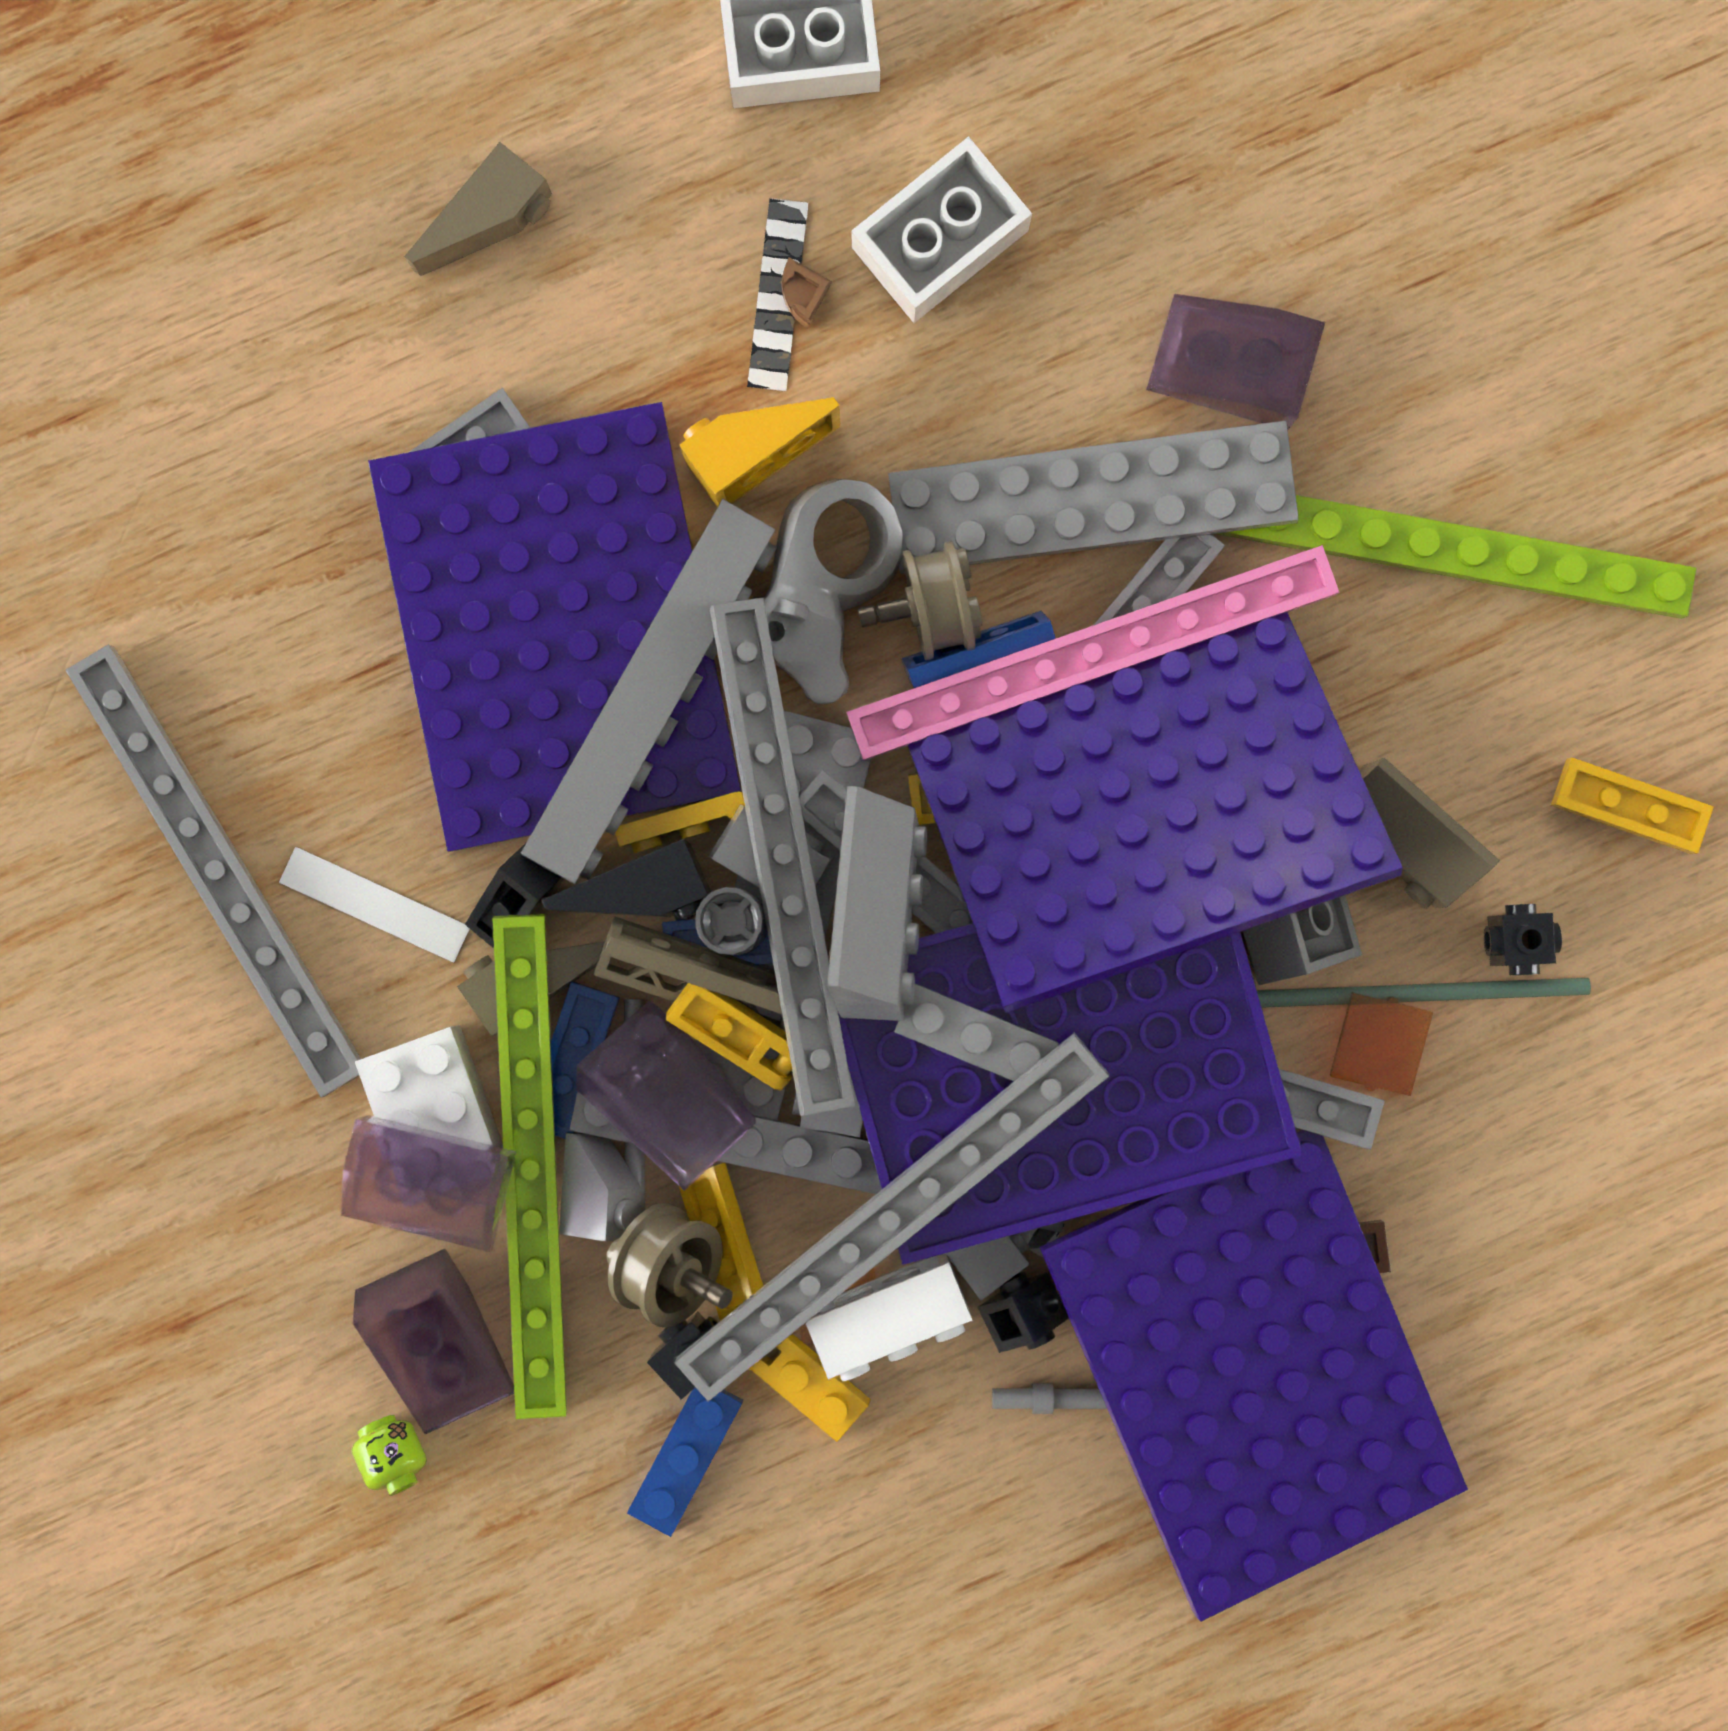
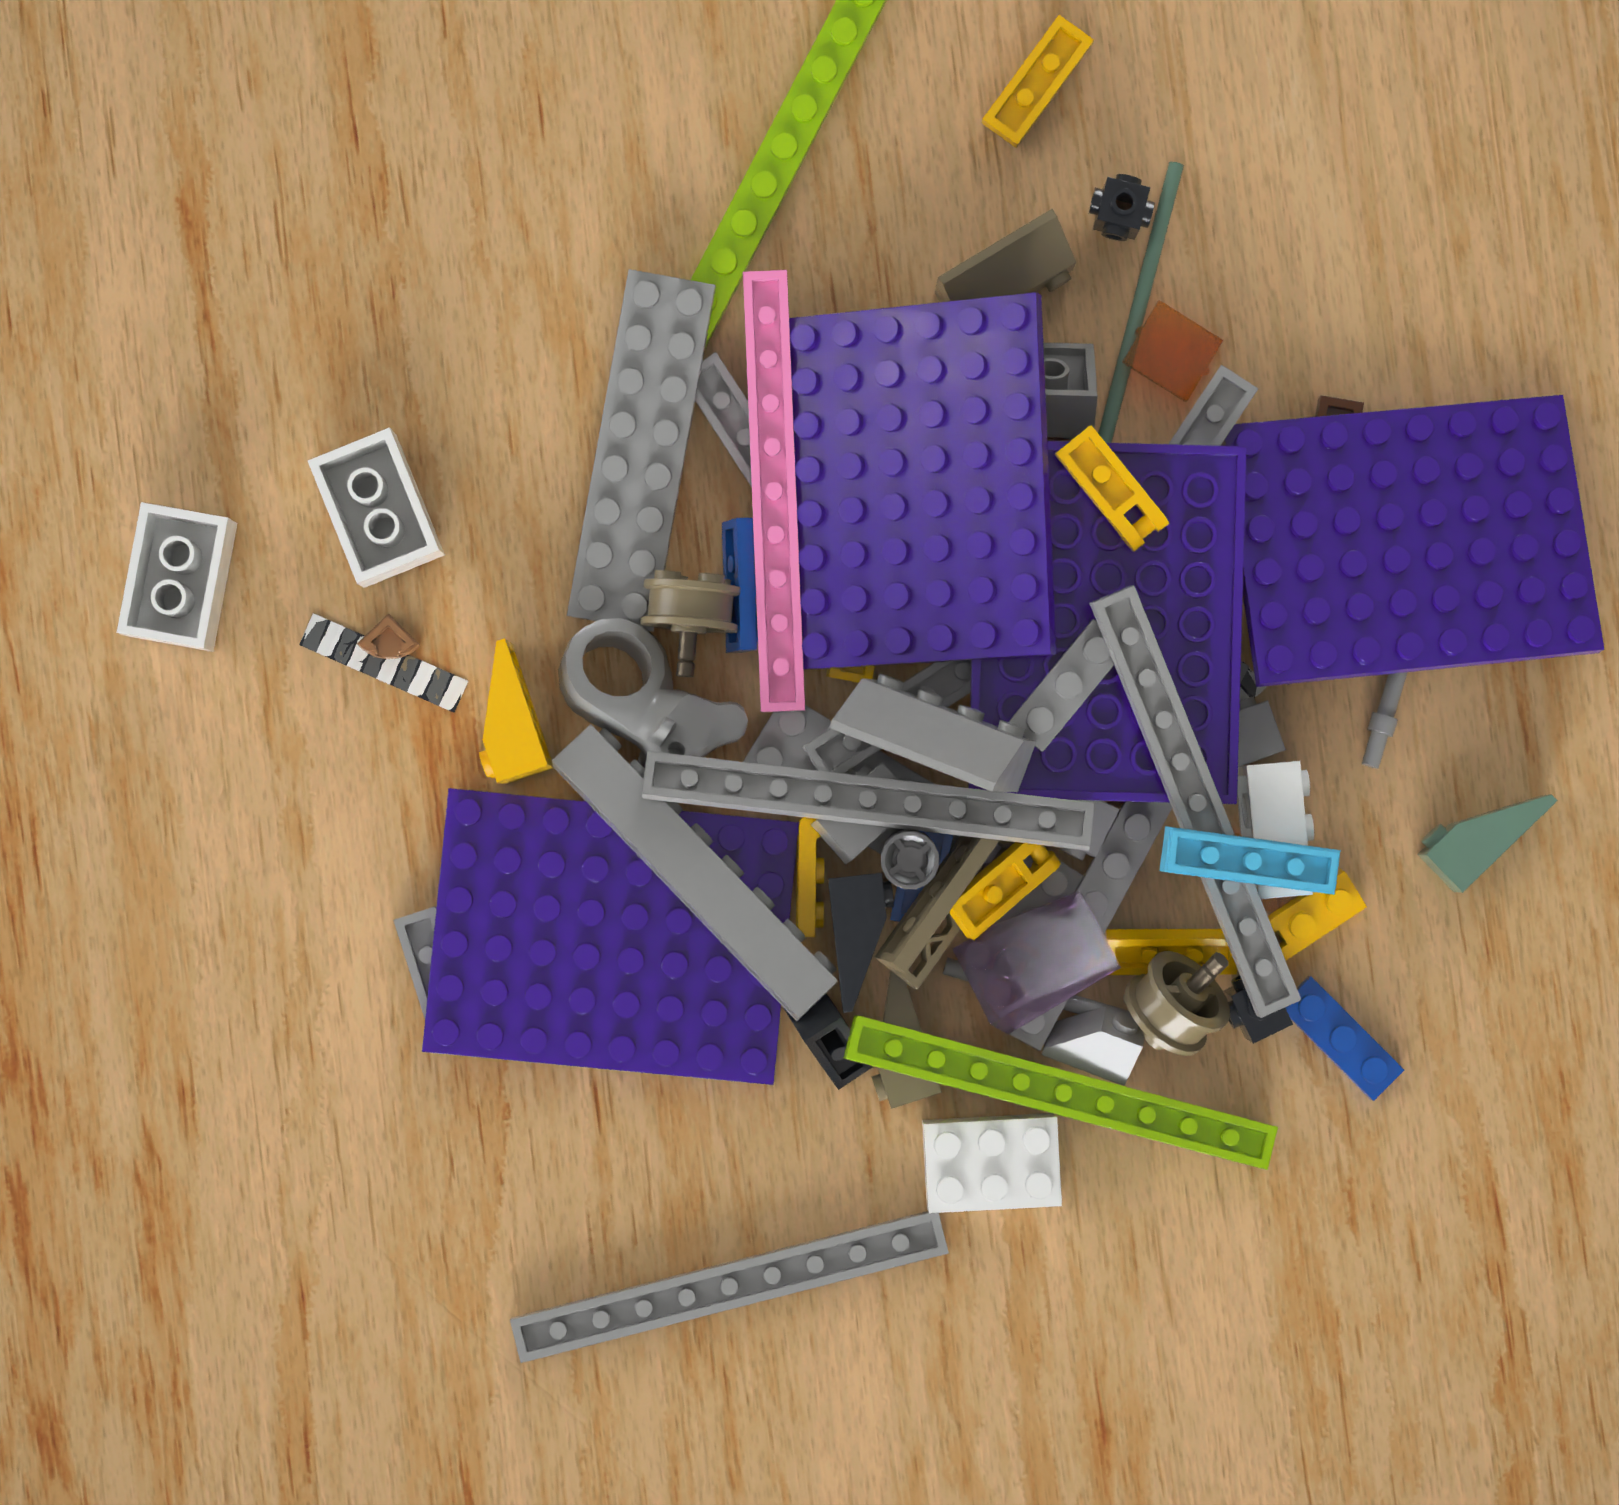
camera: 75 degrees left, 0 degrees up
(374, 904) = (798, 1161): white sticker -> none
(389, 1455) = (1265, 1285): lime head -> none
(425, 1182) = (1049, 1180): slope -> none
(432, 1341) = (1181, 1220): slope -> none
(487, 209) = (236, 884): dark tan slope -> none
(579, 1030) = (967, 1023): blue plate -> none
(843, 1298) = (1249, 860): none -> medium azure tile
(940, 1538) = (1473, 844): none -> sand green slope
(1024, 1312) = (1306, 717): black brick -> none
(1211, 1018) = (1111, 486): none -> yellow plate
(1236, 358) = (560, 293): clear purple slope -> none

